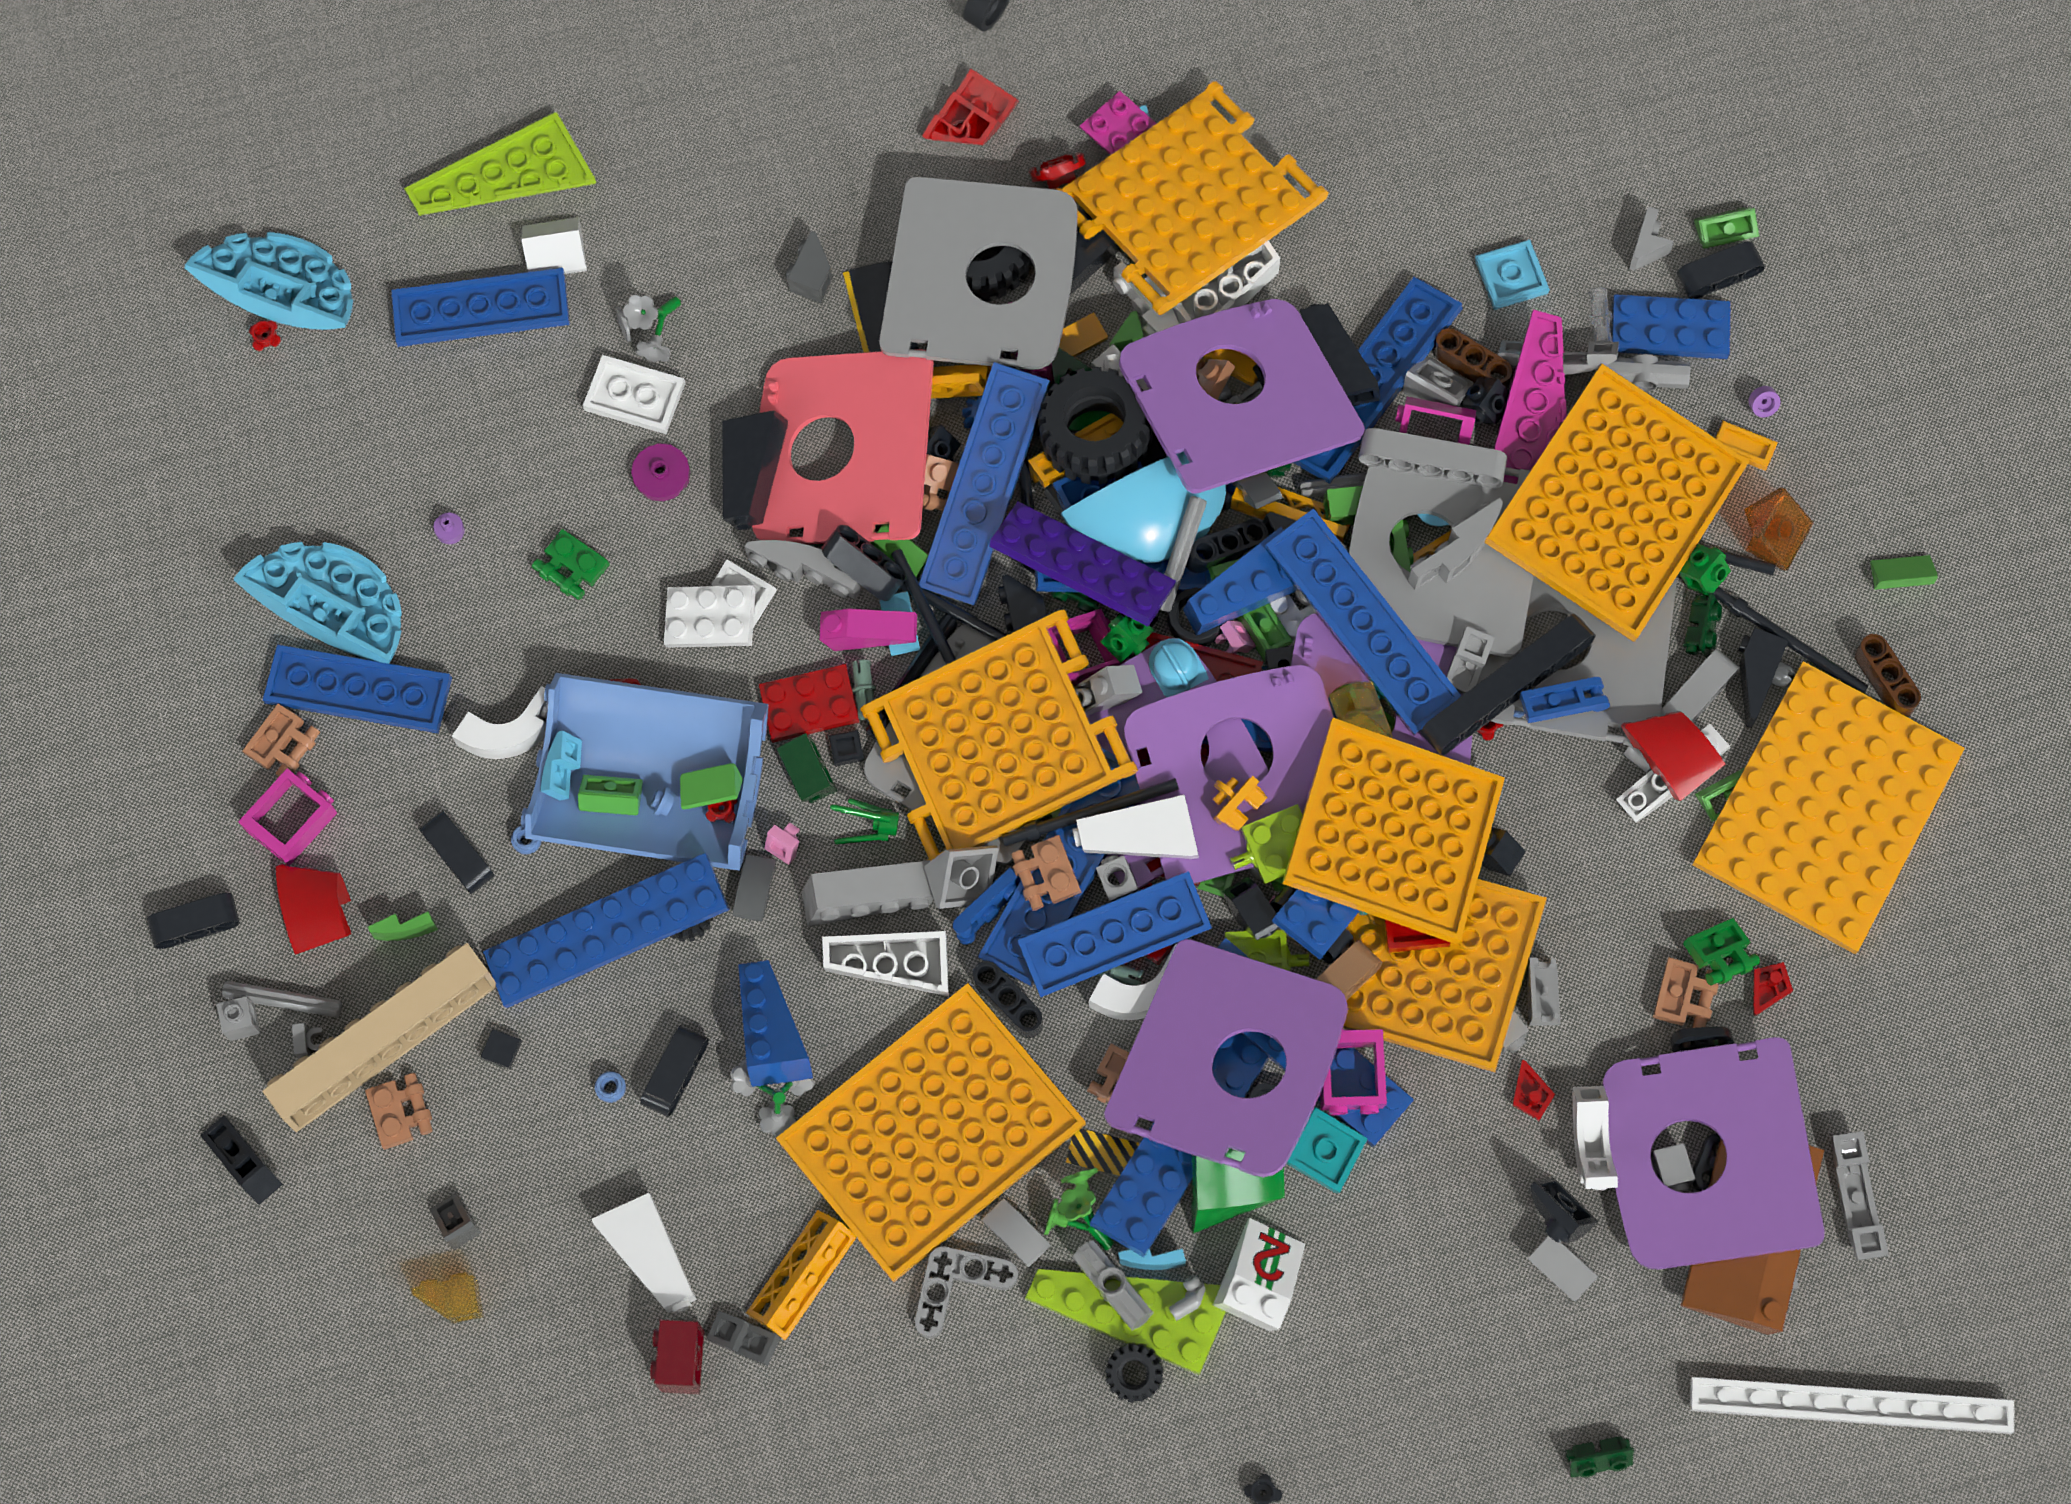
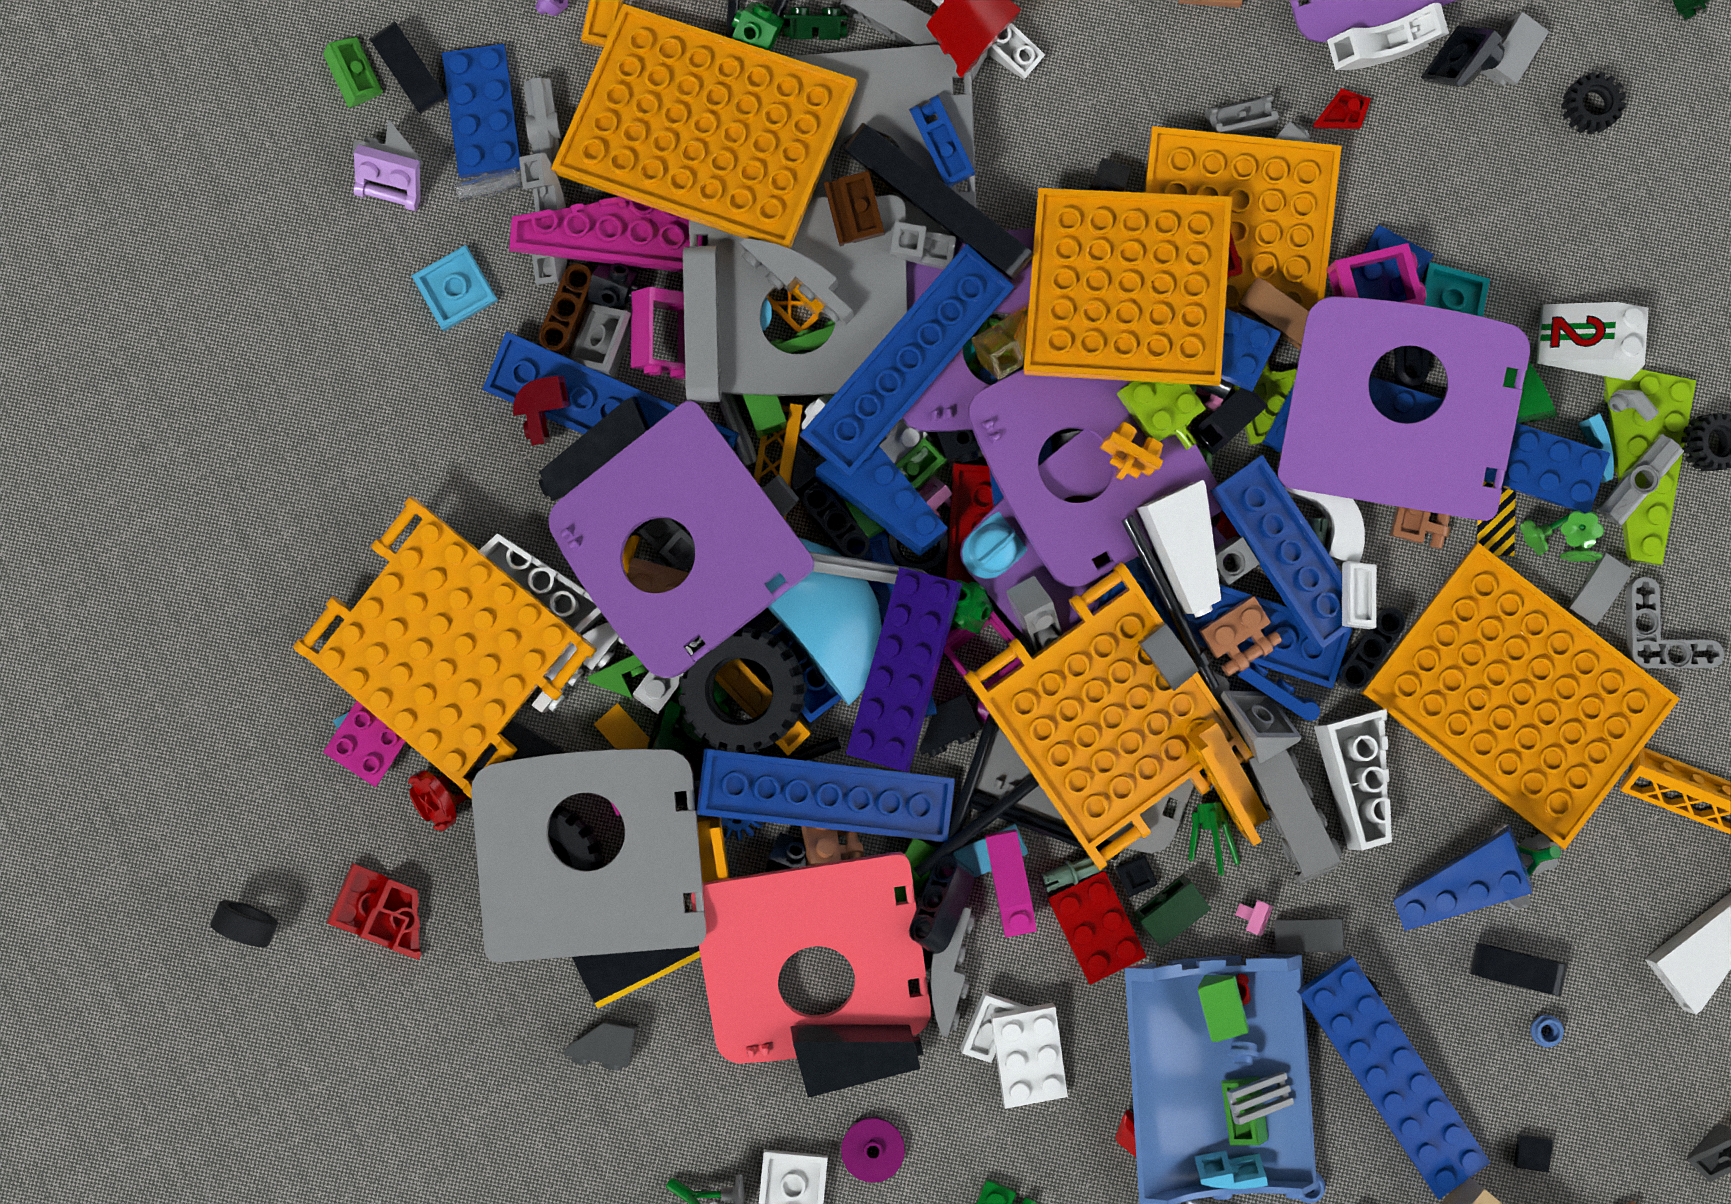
camera: 115 degrees left, 15 degrees up
(621, 827) = (1281, 1090): none -> light grey tile
(916, 832) = (1228, 778): none -> light orange fence
(1041, 792) = (1168, 656): none -> dark grey slope
(1060, 989) = (1359, 595): none -> white tile
(1391, 312) = (534, 400): none -> dark red brick
(1482, 1350) = (1606, 90): none -> black tyre
(1514, 606) = (854, 208): none -> reddish brown plate
(1621, 233) = (387, 170): none -> lavender plate

